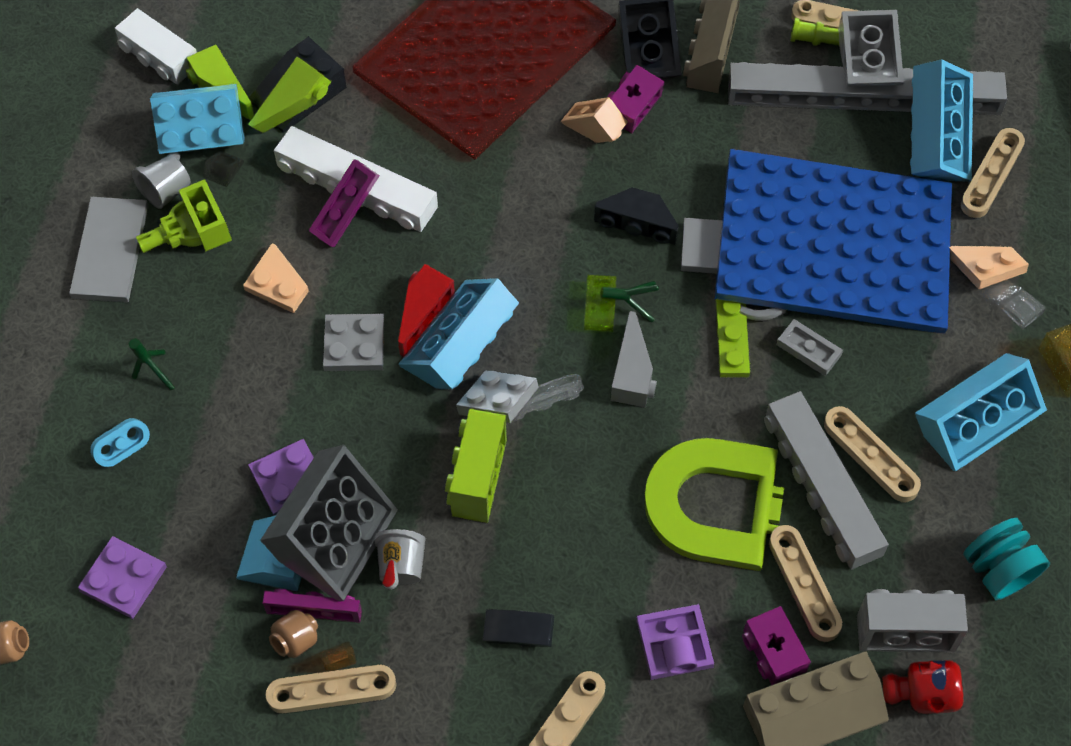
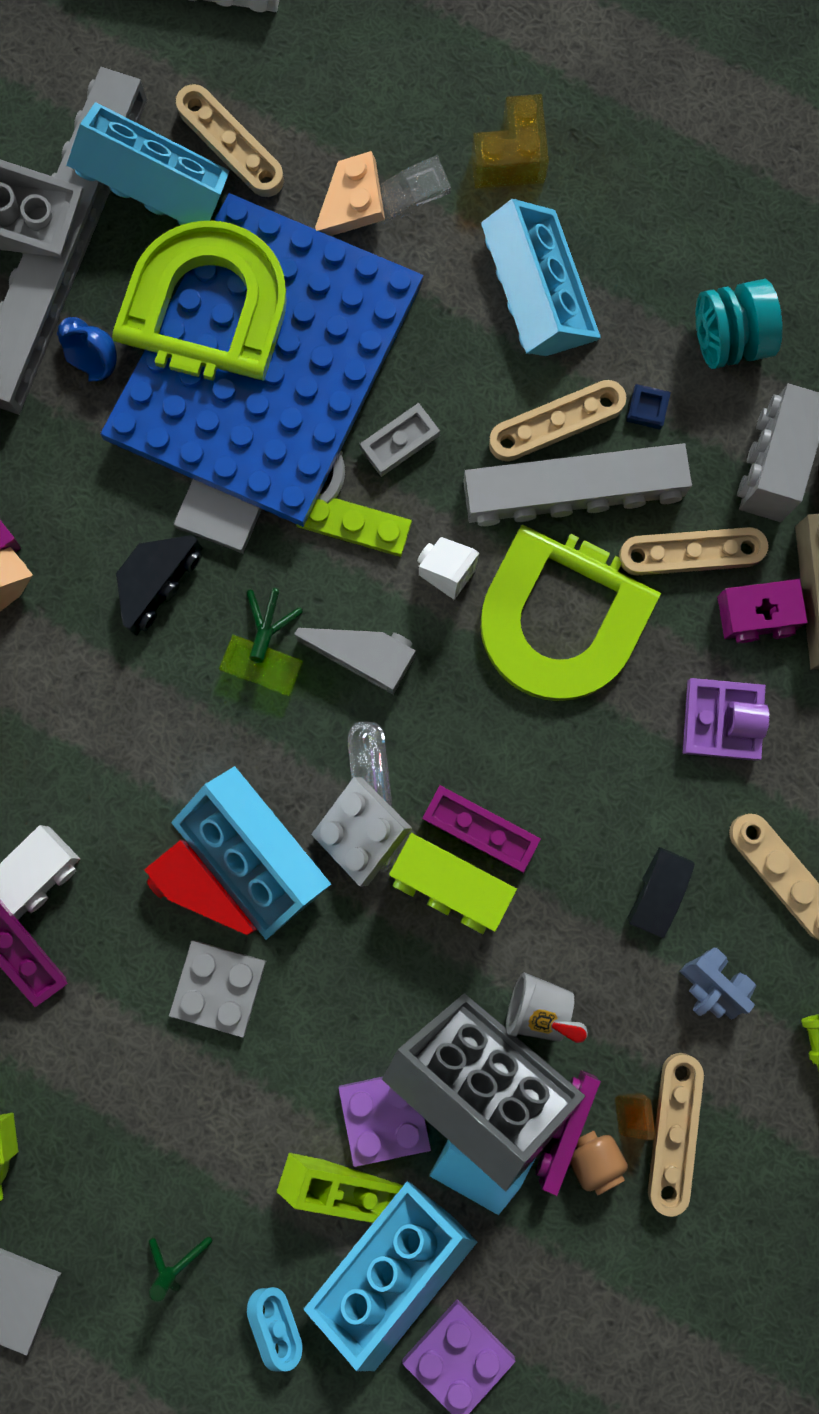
camera: 75 degrees left, 20 degrees up
(174, 507) = (389, 1277): none -> medium azure slope
(228, 461) = (334, 1189): none -> lime slope
(277, 281) = (94, 1066): light nougat wing -> none
(464, 678) = (714, 990): none -> sand blue hips
(526, 484) = (481, 829): none -> magenta plate
(720, 404) = (448, 565): none -> white slope
(793, 128) = (87, 348): none -> blue hair
(865, 150) = (197, 246): none -> lime piece
(913, 520) = (648, 406): none -> dark blue tile

